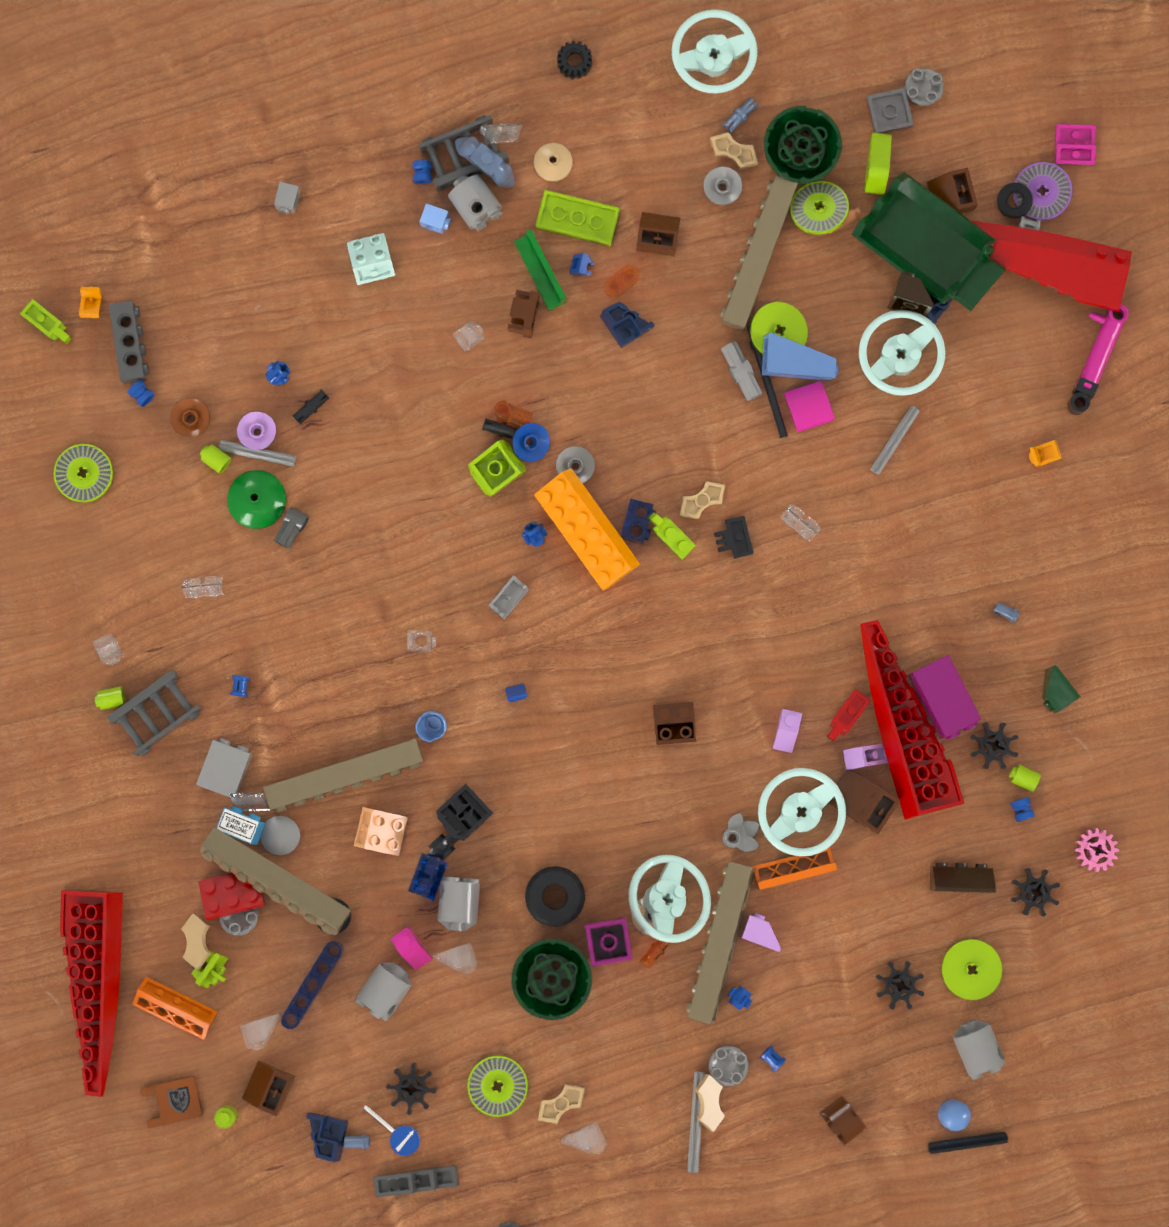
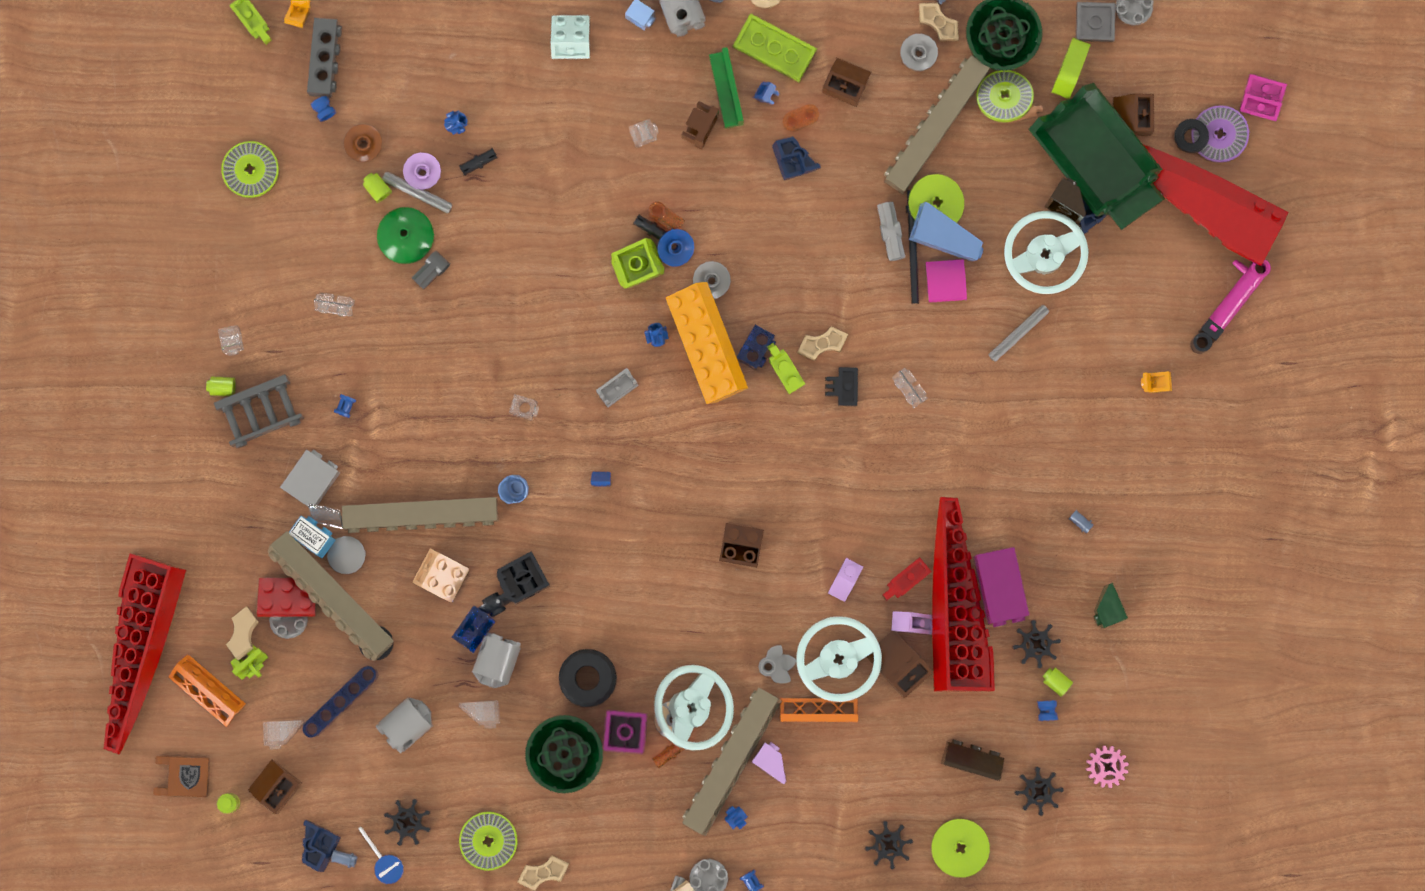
camera: 15 degrees right, 0 degrees up
(411, 948) = (441, 691): dark pink slope -> none
(1025, 222) = (1204, 163): light grey bush -> none

